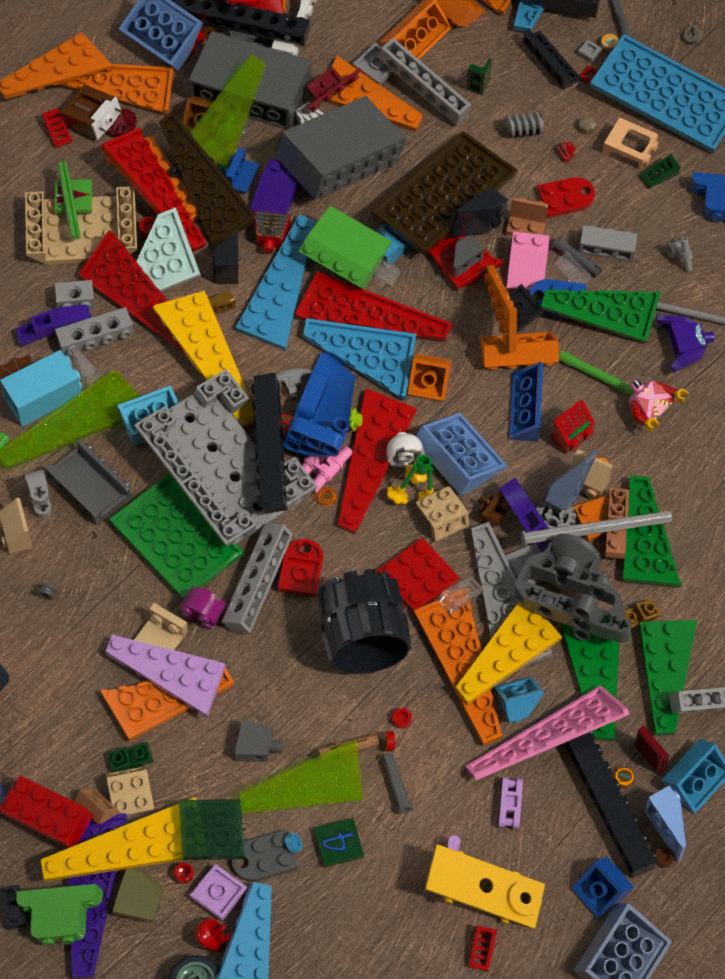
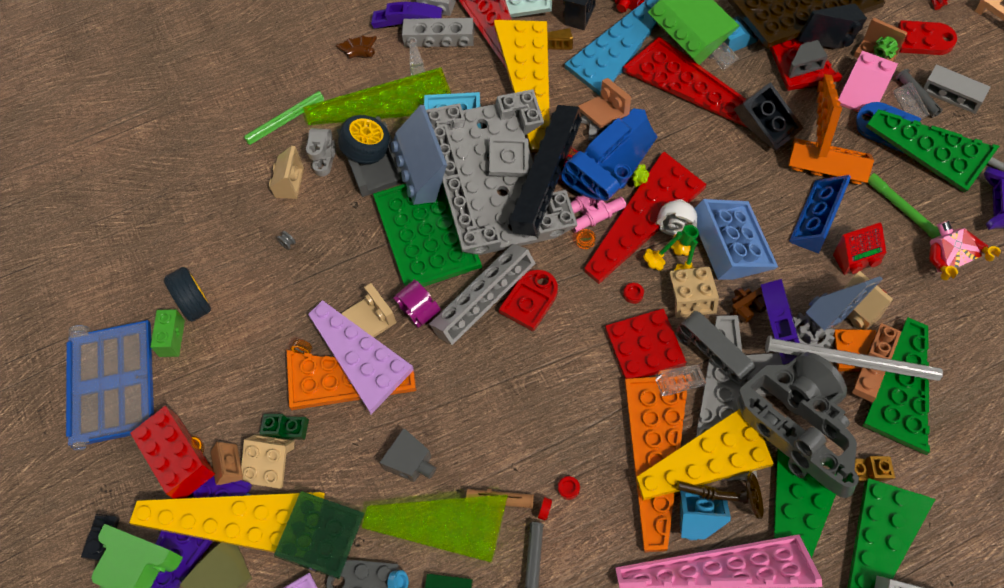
camera: 30 degrees right, 0 degrees up
(41, 387) = (367, 62): medium azure brick -> none
(79, 468) = (363, 139): none -> black wheel
(112, 682) = (301, 346): none -> clear orange tile
(146, 469) = (419, 157): none -> sand blue slope
(184, 873) = (275, 569): red tile -> none
(229, 442) = (508, 156): none -> light grey plate
(296, 359) = (607, 107): none -> nougat bracket
(363, 622) = (563, 373): black wheel -> none
(373, 352) = (684, 123): dark azure wing -> none
(390, 532) = (633, 293): none -> red tile
(429, 377) = (730, 159): orange slope -> none
(450, 325) = (769, 116): none -> black slope
(479, 555) = (715, 346): none -> dark grey beam
(526, 307) = (849, 124): black plate -> none
(533, 222) = (886, 47): none -> bright green gear
(552, 669) = (749, 496): none -> dark brown dish

